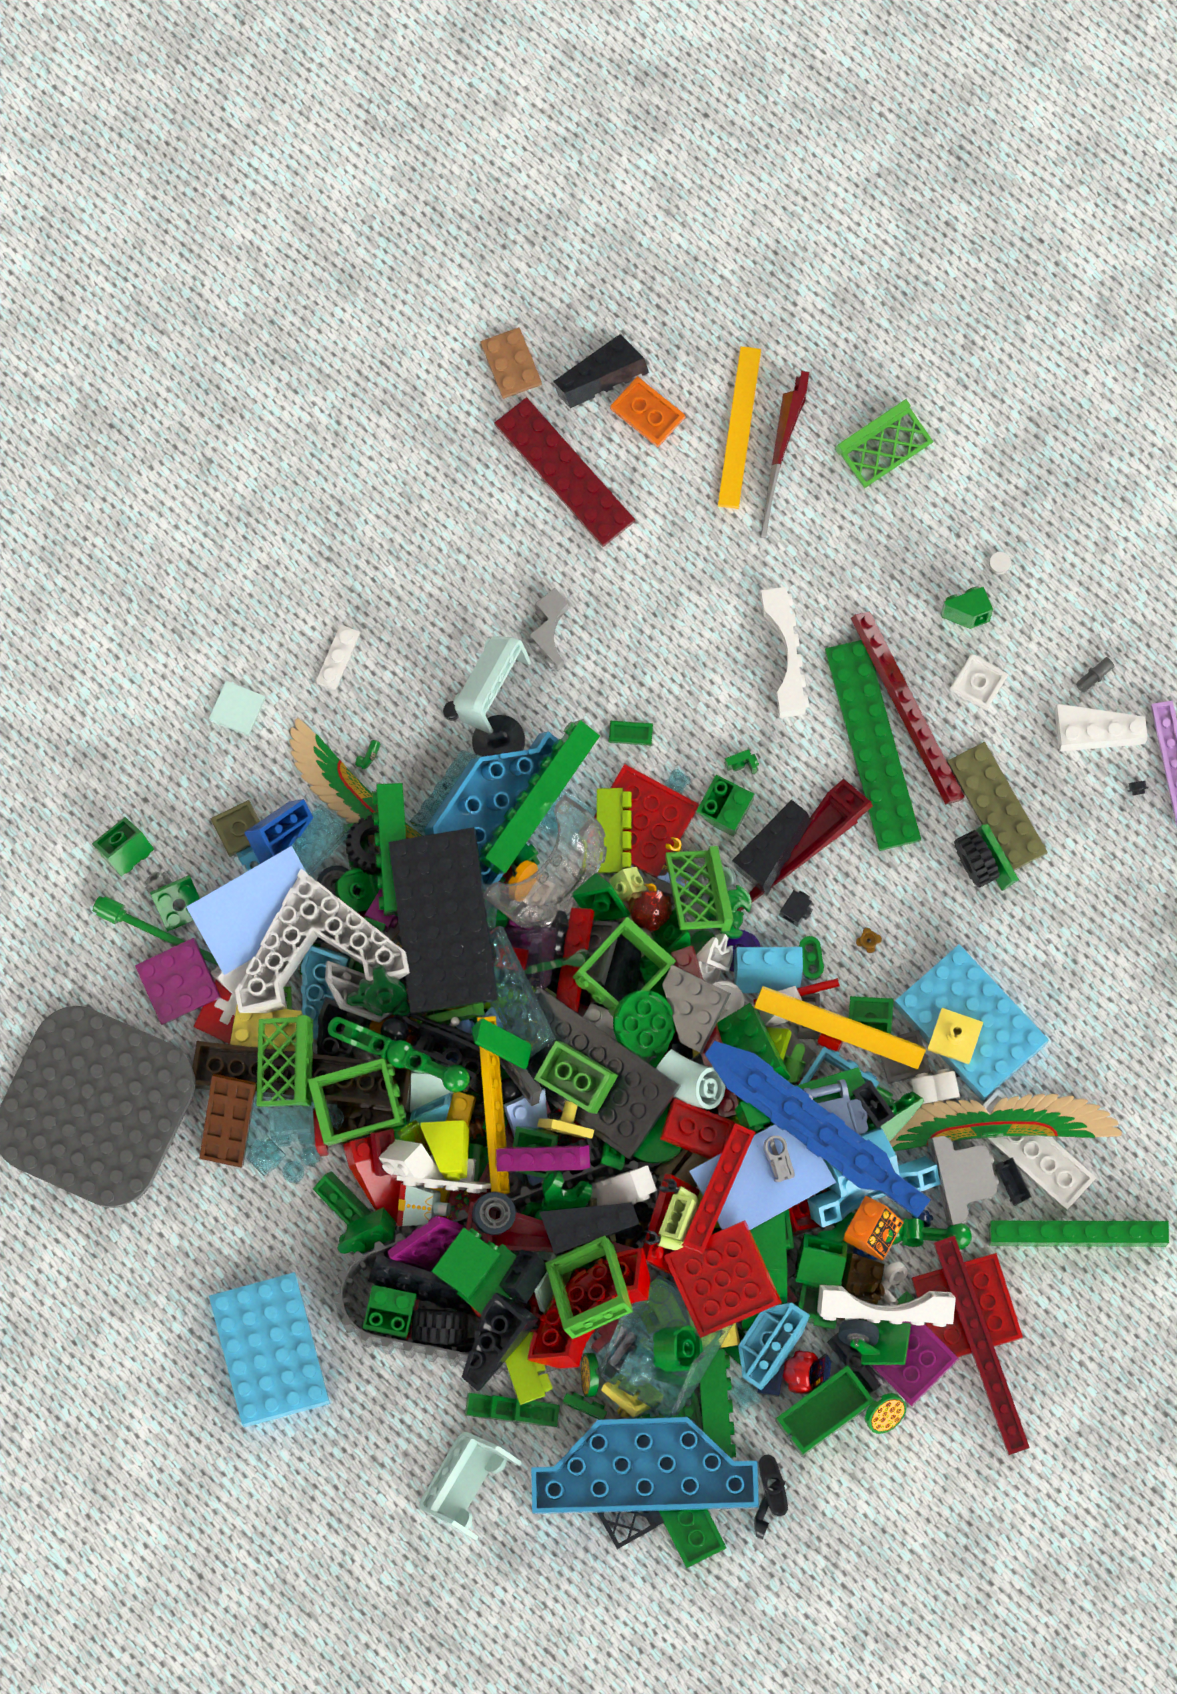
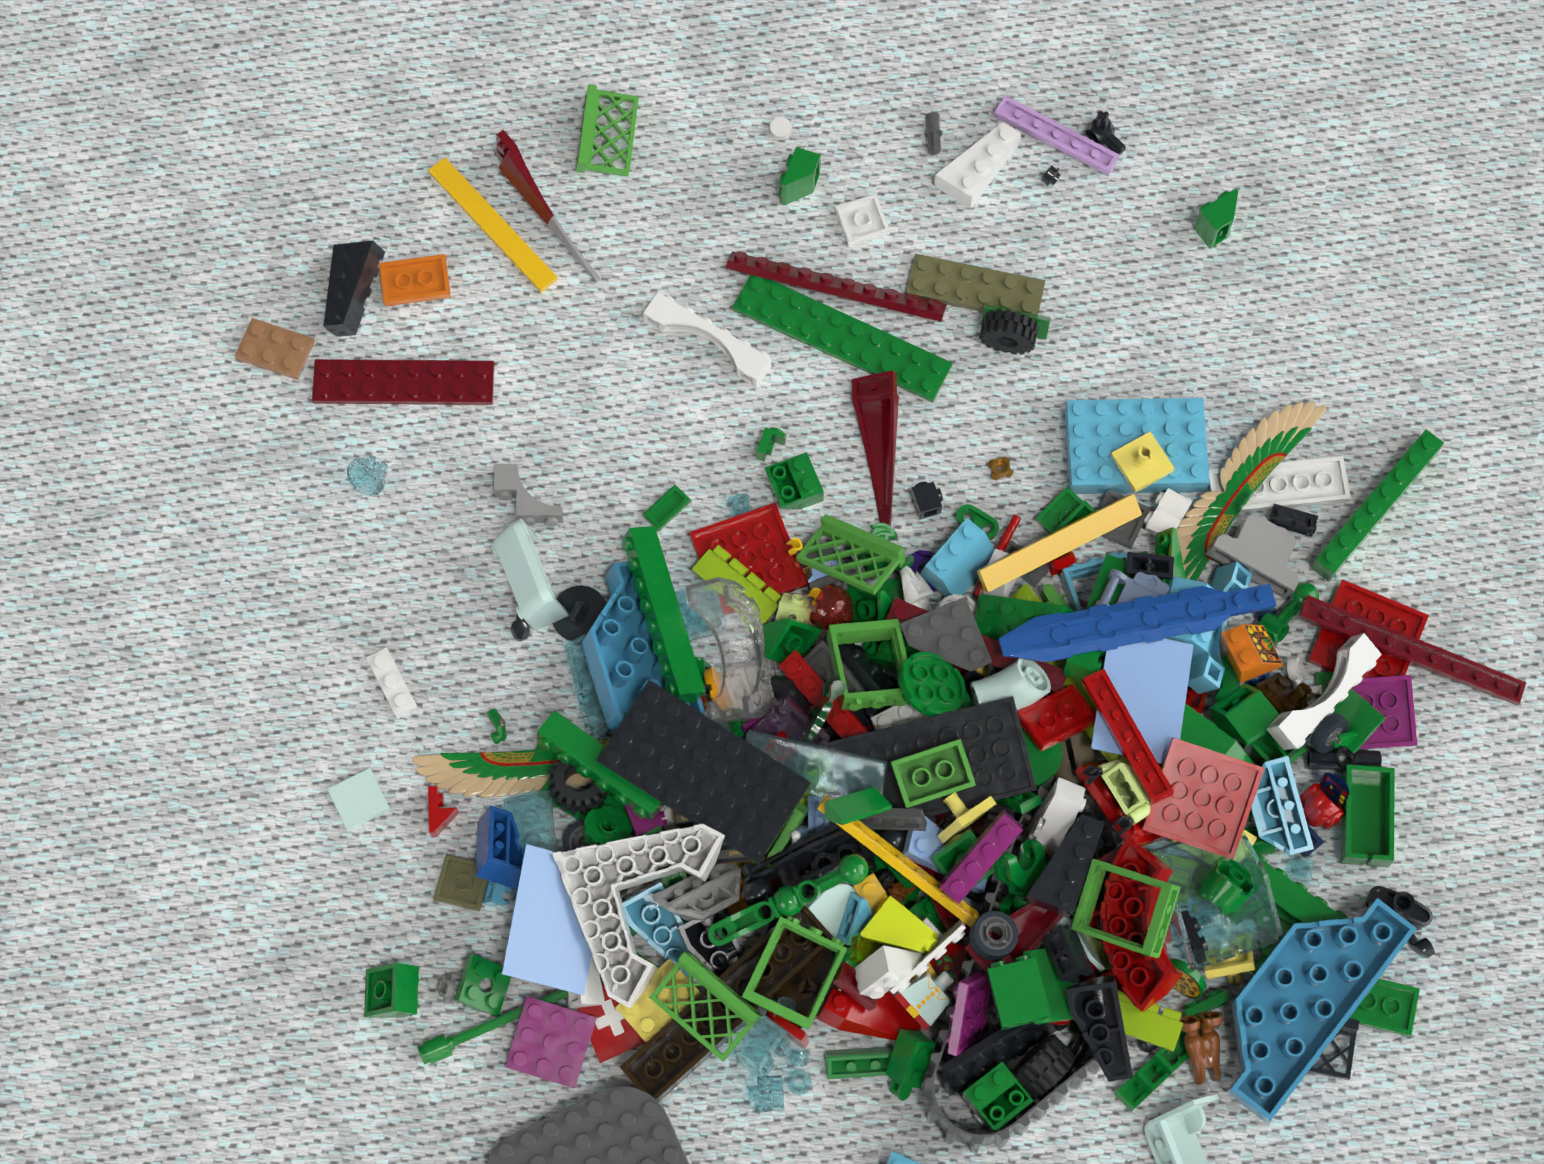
camera: 50 degrees left, 5 degrees down
(227, 1120) = (711, 1098): reddish brown plate -> none
(268, 771) = (438, 817): none -> red slope
(381, 994) = (721, 875): dark green tile -> none
(472, 508) = (367, 475): none -> clear light blue hair
(548, 1428) = (1203, 1048): none -> dark orange piece
(772, 847) = (862, 479): black wedge -> none
(780, 1162) = (1144, 670): light grey piece -> none
(885, 1413) = (1408, 771): tile -> none

